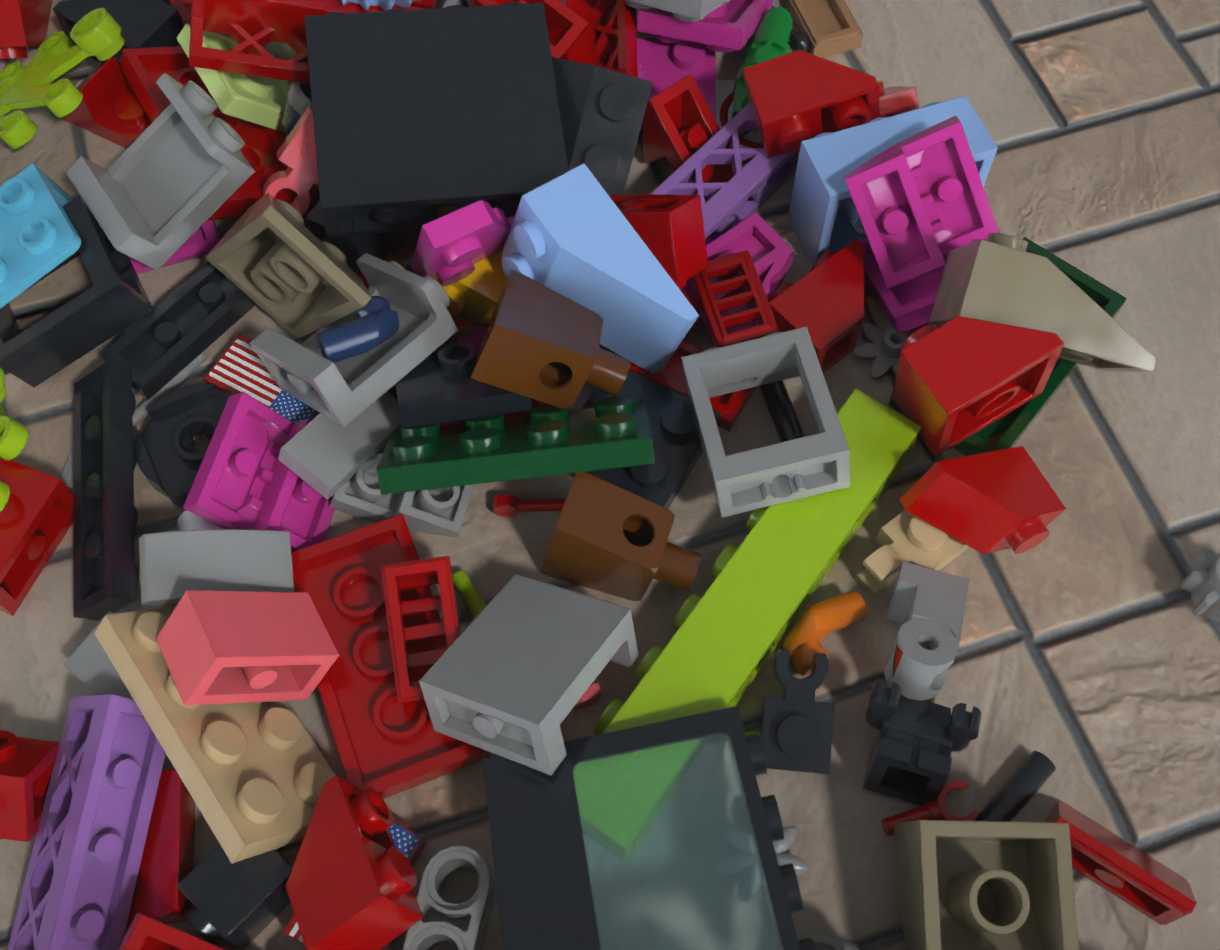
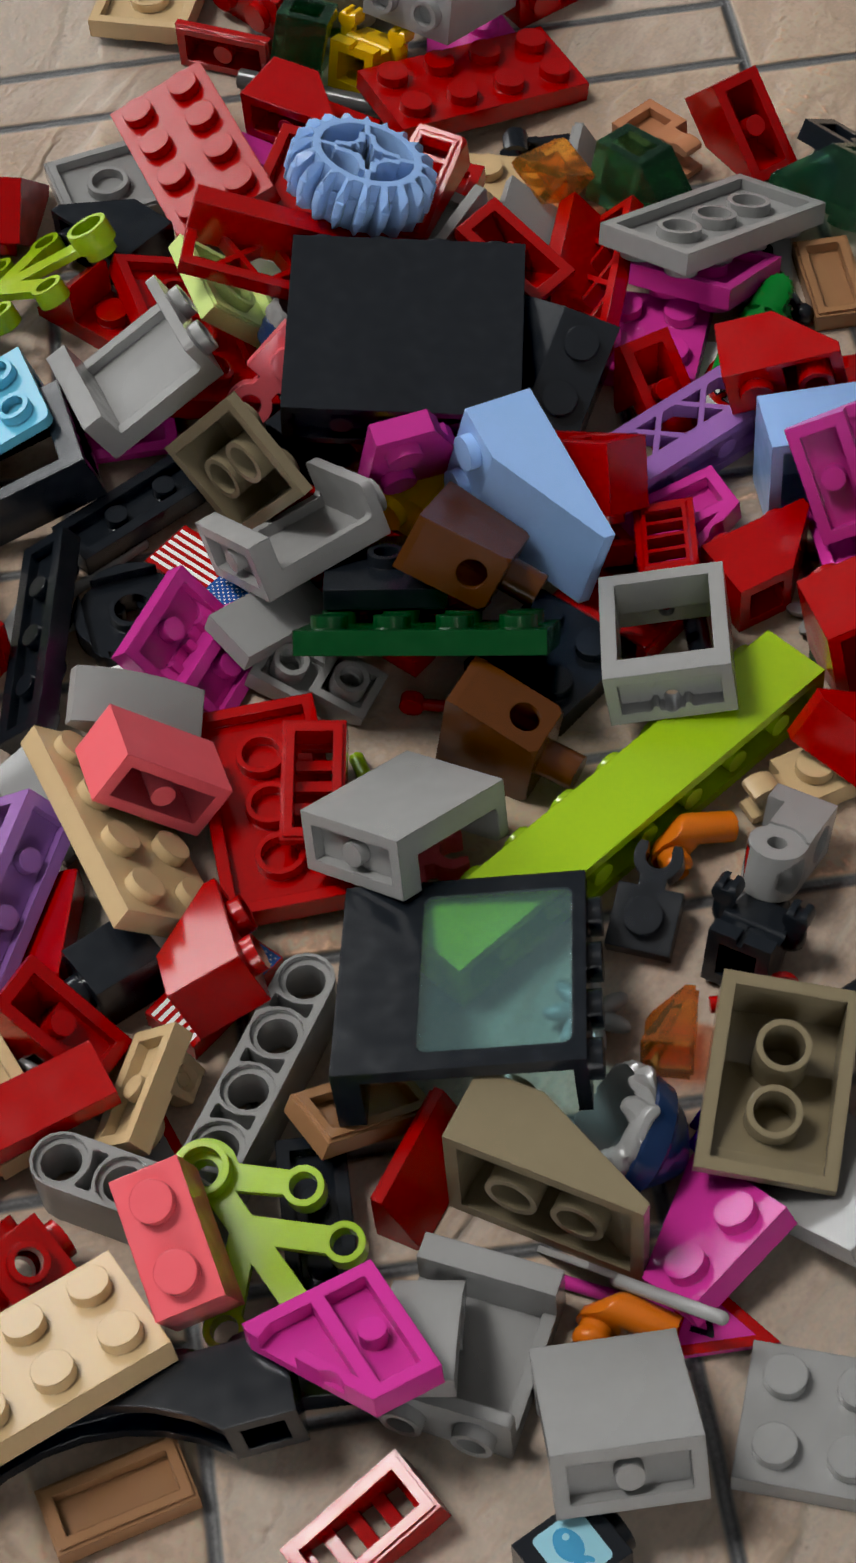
camera: 15 degrees right, 10 degrees down
(374, 326) = (309, 516): dark blue arm -> none
(853, 871) = (672, 1035): none -> clear orange slope

